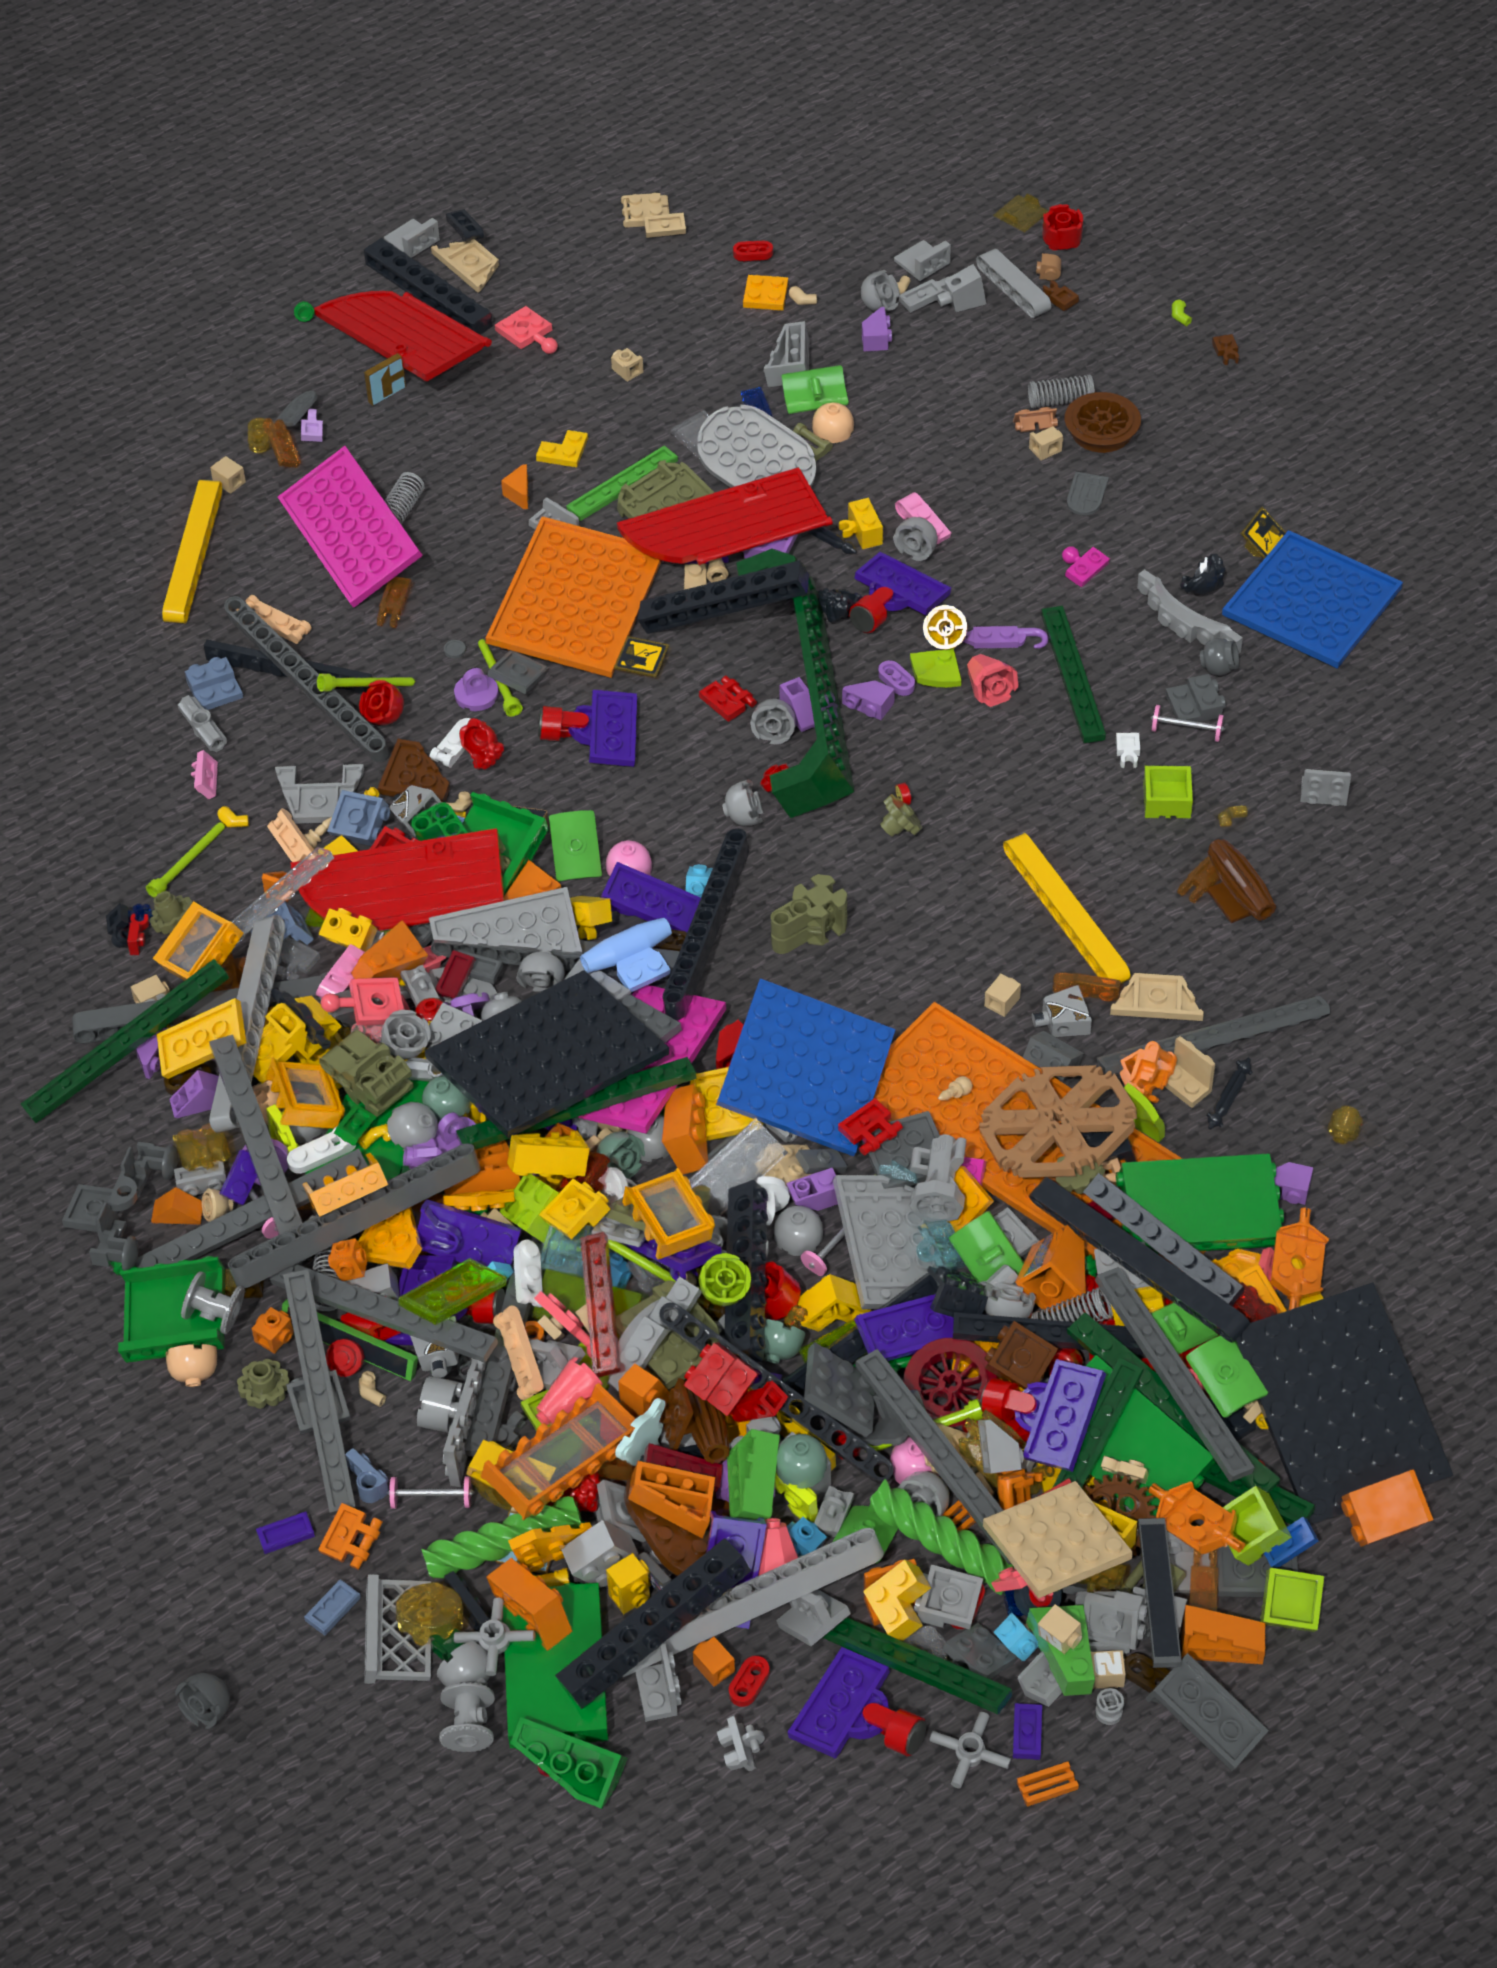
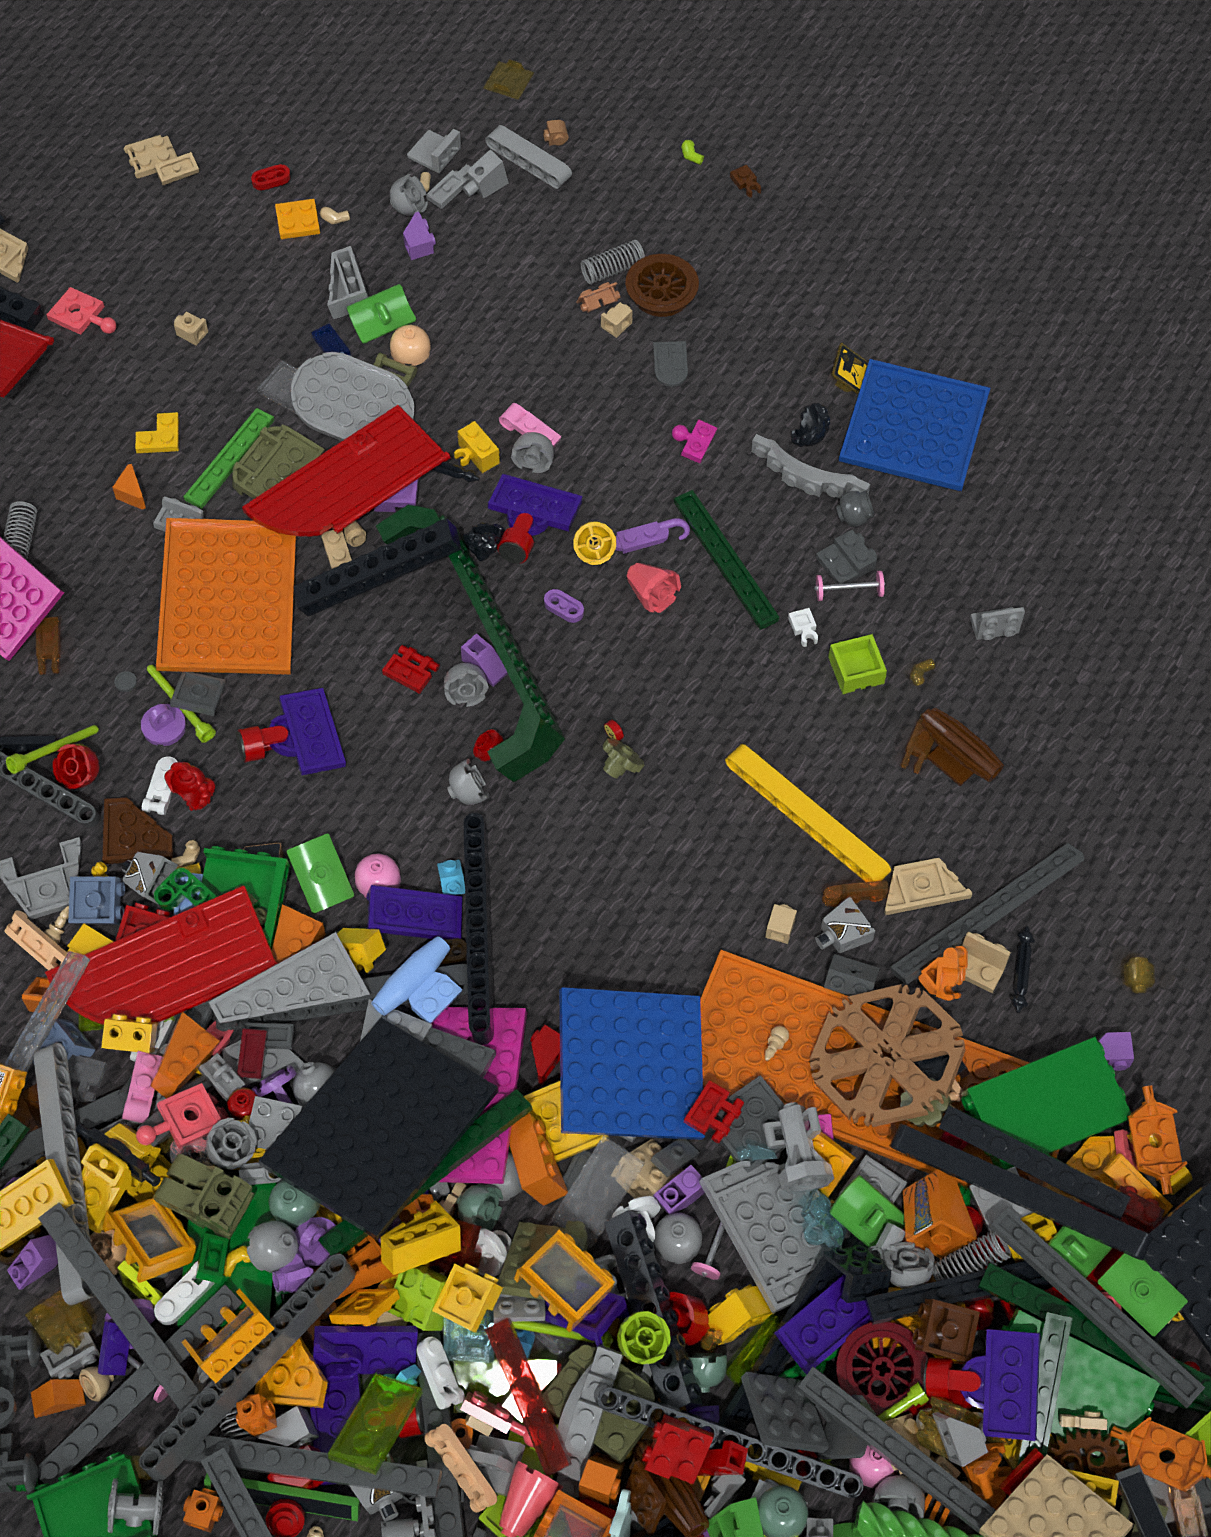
camera: 20 degrees left, 10 degrees up
(540, 971) = (336, 1024): light grey cylinder -> none
(641, 656) = (313, 645): piece -> none
(809, 916) = (574, 890): olive connector -> none
(869, 697) = (546, 634): medium lavender slope -> none
(936, 668) = (596, 585): lime plate -> none
(1061, 297) = (576, 161): reddish brown plate -> none
(1062, 227) = (555, 88): red brick -> none
(1147, 1117) = (968, 1024): lime plate -> none

